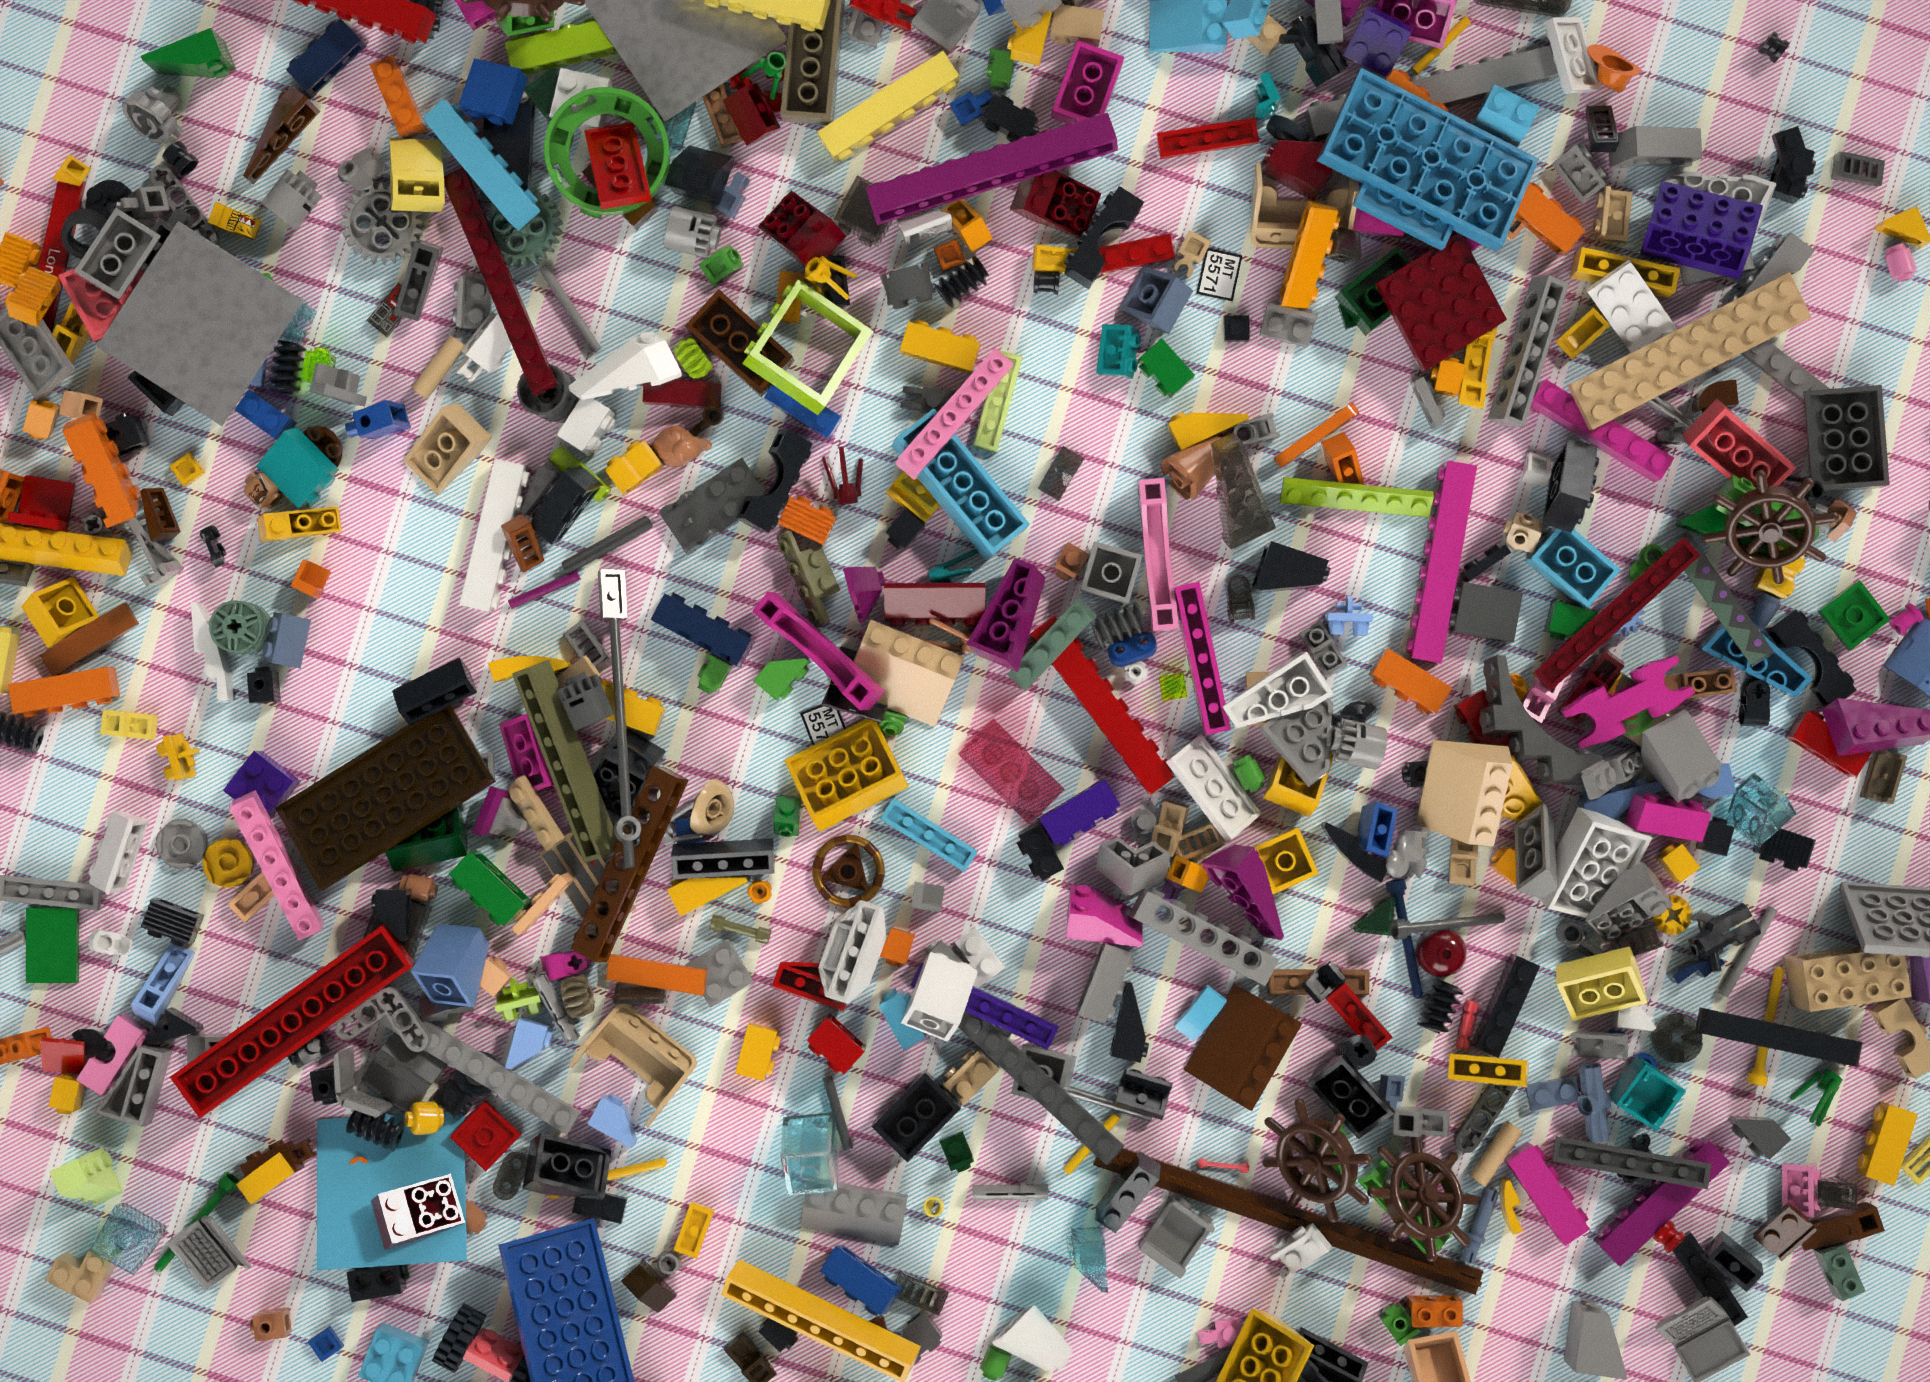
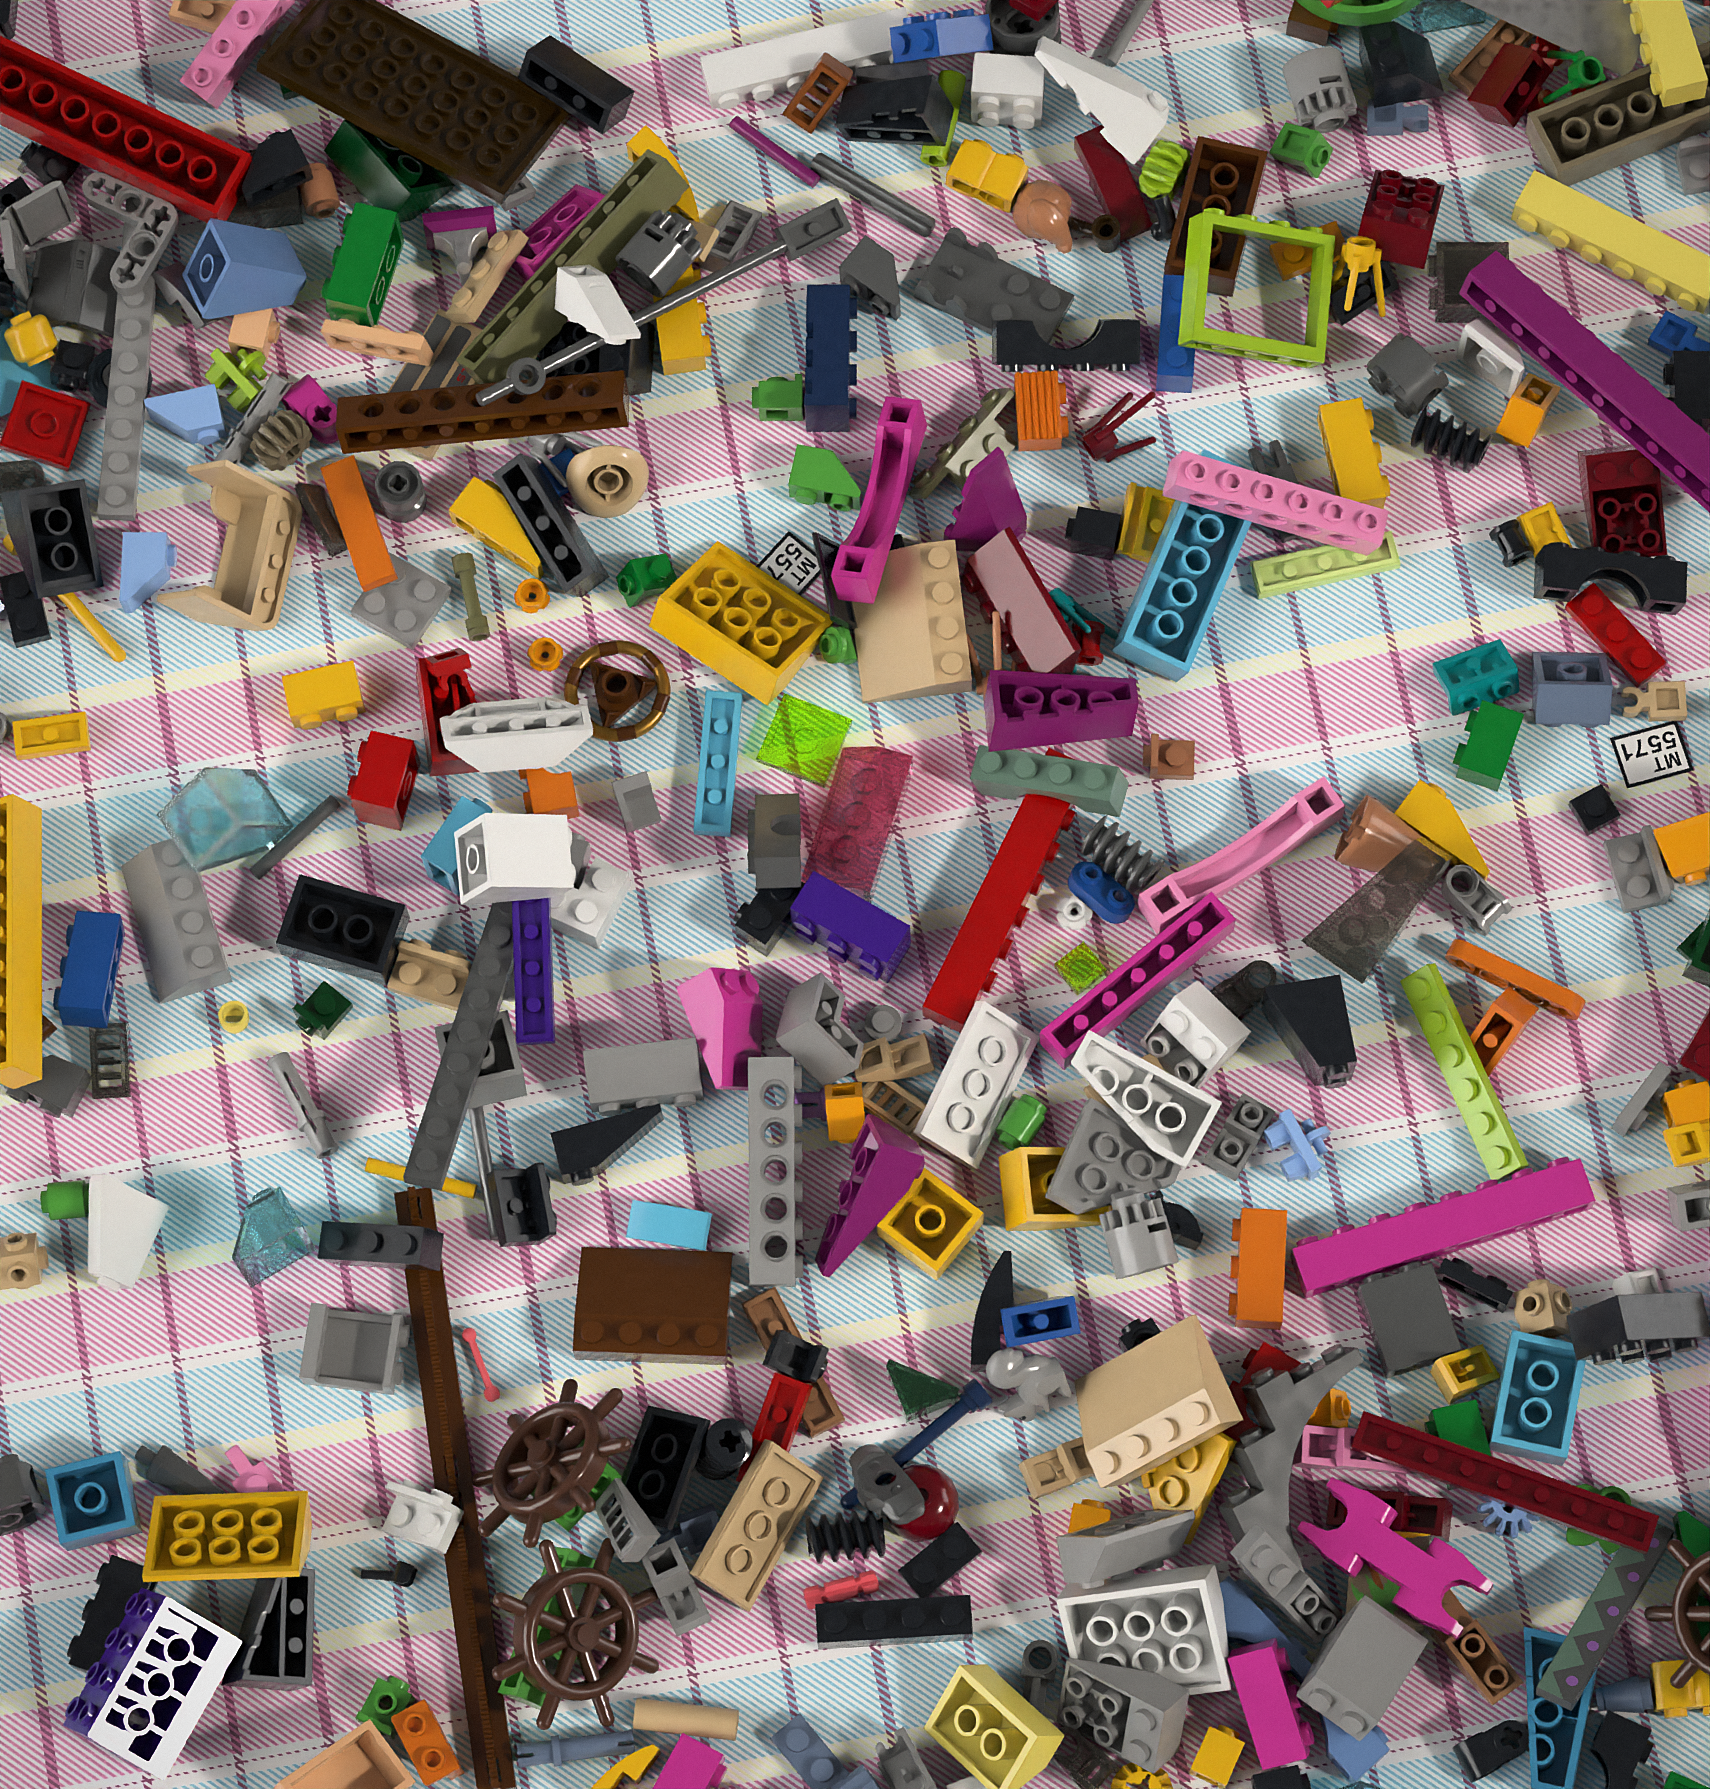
camera: 65 degrees right, 15 degrees down
(533, 449) = (941, 36): none -> blue brick
(601, 762) = (592, 301): none -> white slope
(650, 939) = (400, 491): none -> dark grey wheel
(662, 573) = (873, 275): none -> dark grey slope
(724, 374) = (1166, 217): none -> black arm
(788, 970) = (449, 663): none -> red tile
(802, 896) = (541, 646): none -> light orange plate
(940, 774) = (804, 740): none -> clear neon green tile
(949, 255) = (1477, 411): orange tile -> none
(977, 574) = (1089, 643): none -> red bush
(989, 821) = (775, 841): none -> dark grey arch
(1060, 473) = (1278, 687): clear smoke slope -> none
(1110, 573) = (1183, 809): light grey brick -> none
(1252, 642) = (1194, 1035): none -> white slope
(1325, 1275) = (403, 1574): none -> black hand
(1385, 1134) = (644, 1533): none -> light grey slope
(1401, 928) = (924, 1422): dark grey piece -> none
(1408, 1055) = (756, 1525): none -> tan tile
(1442, 969) = (899, 1500): none -> dark grey piece
(1480, 959) = (940, 1561): none -> black plate
(1488, 1070) = (793, 1638): yellow brick -> none
(1491, 1113) = (739, 1681): dark grey beam -> none
(1535, 597) = (1464, 1373): none -> yellow slope

